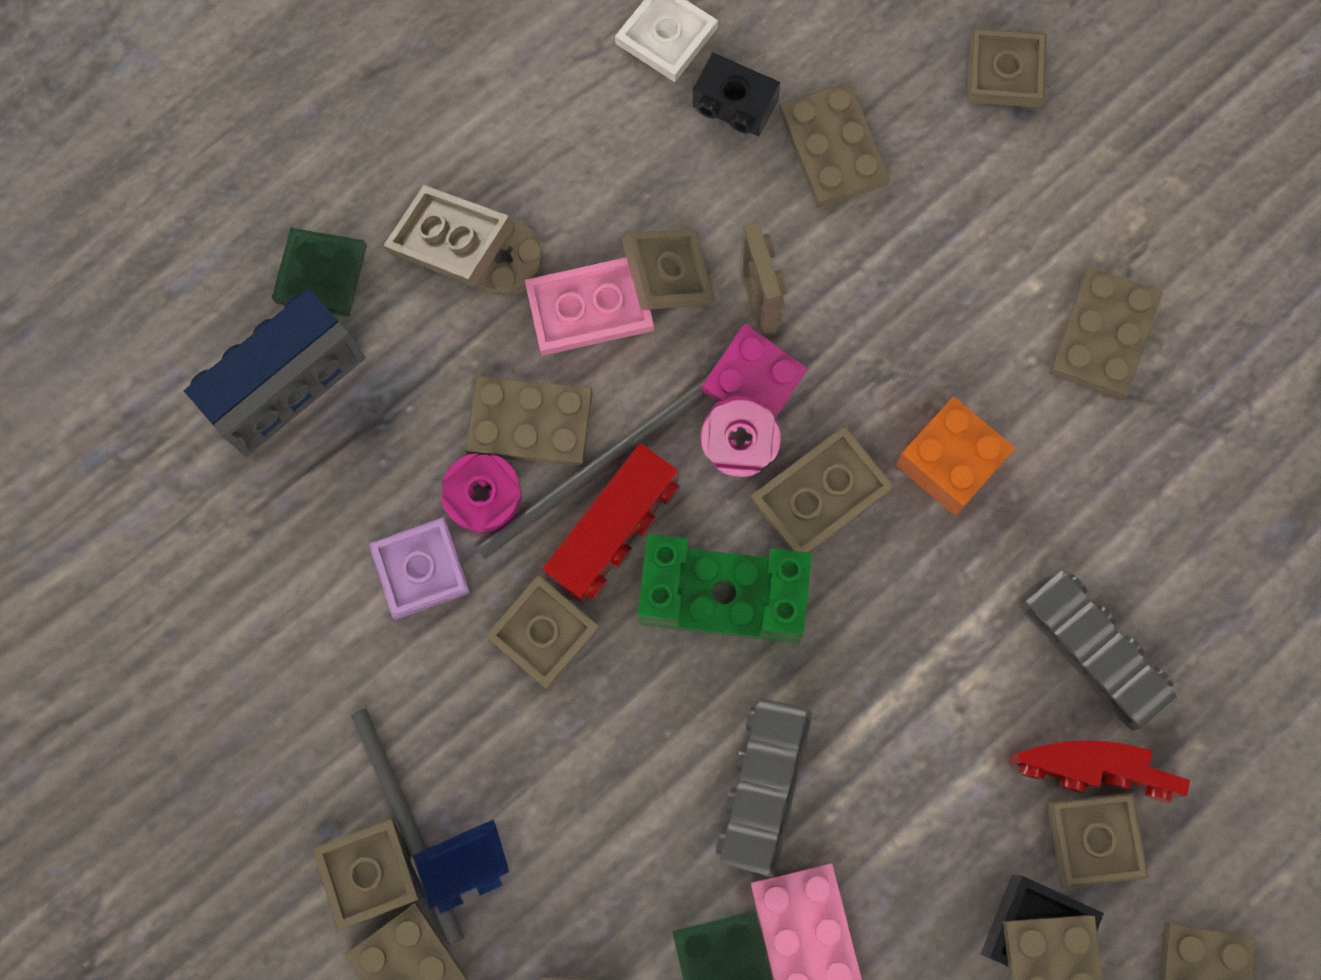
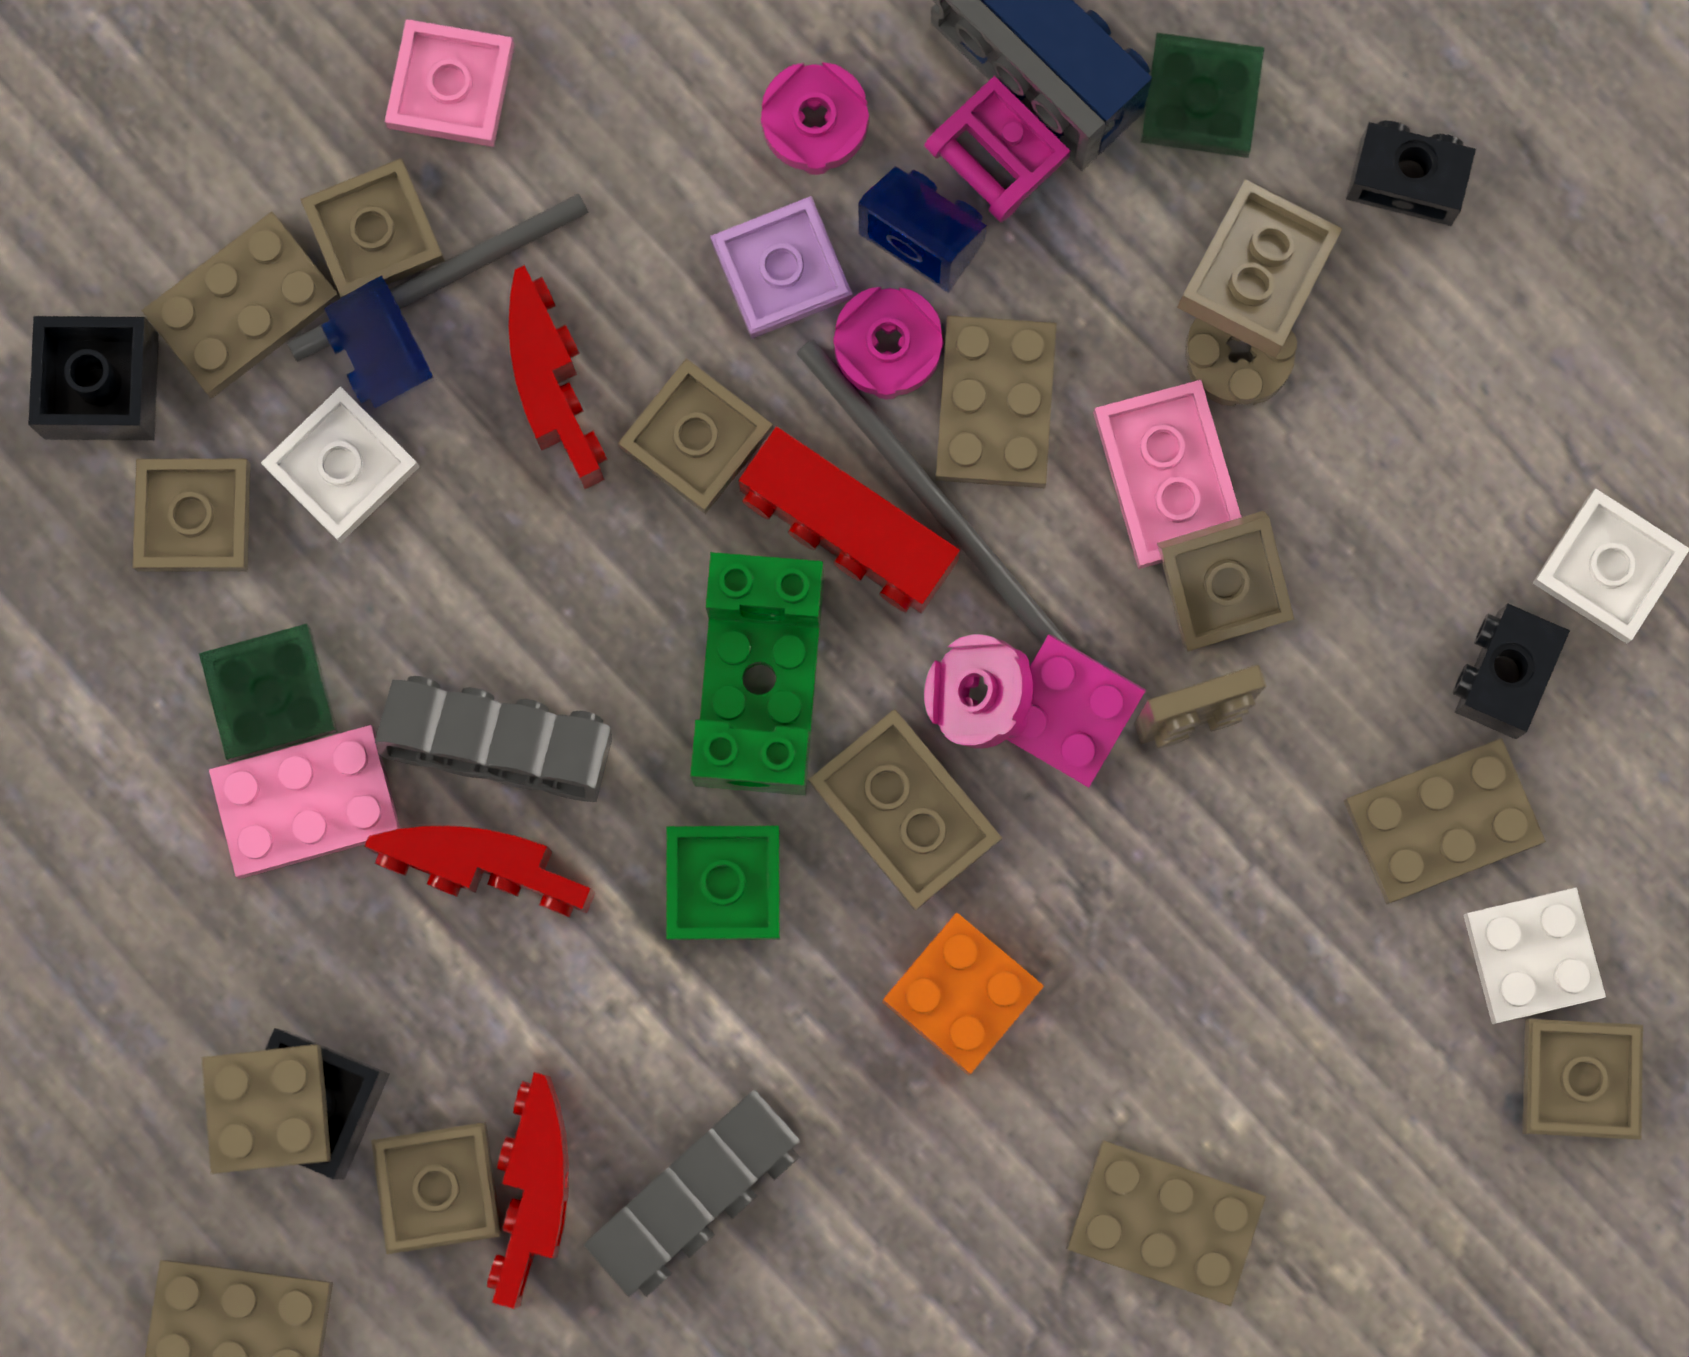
camera: 85 degrees right, 5 degrees up
(256, 811) = (449, 83): none -> bright pink plate
(286, 539) = (814, 86): none -> dark pink plate
(339, 400) = (1010, 136): none -> dark pink plate
(388, 159) = (1383, 185): none -> black brick
(400, 462) = (921, 226): none -> clear blue slope
(477, 746) = (541, 362): none -> red slope
(548, 903) = (340, 464): none -> white plate
(851, 816) = (462, 854): none -> red slope
(873, 622) = (722, 882): none -> green plate
(924, 94) = (1534, 955): none -> white plate

